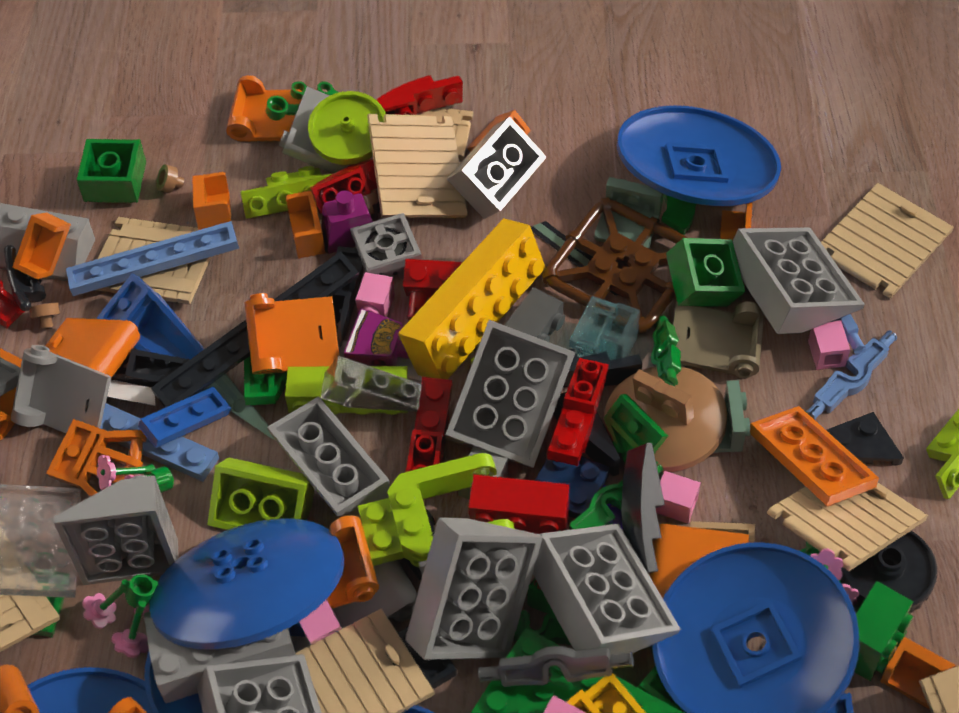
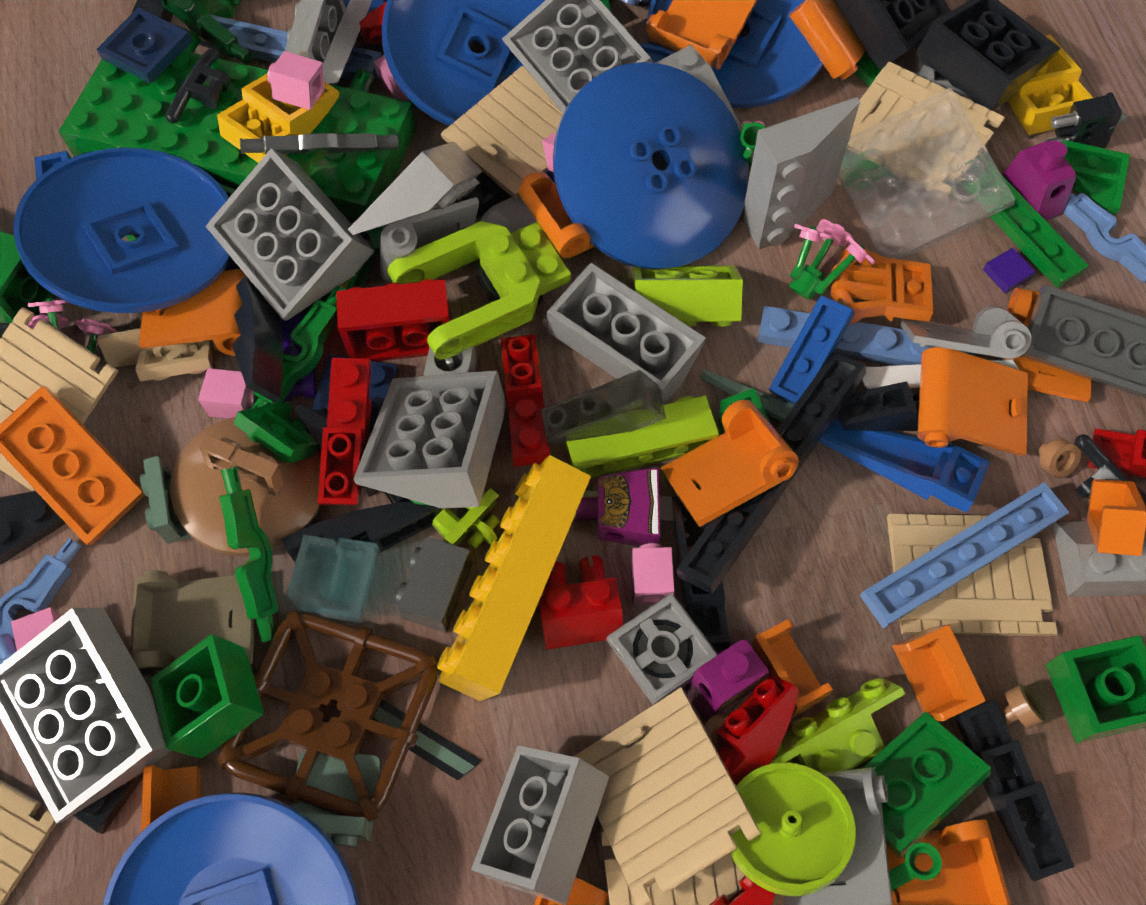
camera: 165 degrees right, 10 degrees up
(199, 141) = (1014, 793): none -> black slope
(254, 154) = (925, 780): none -> green plate

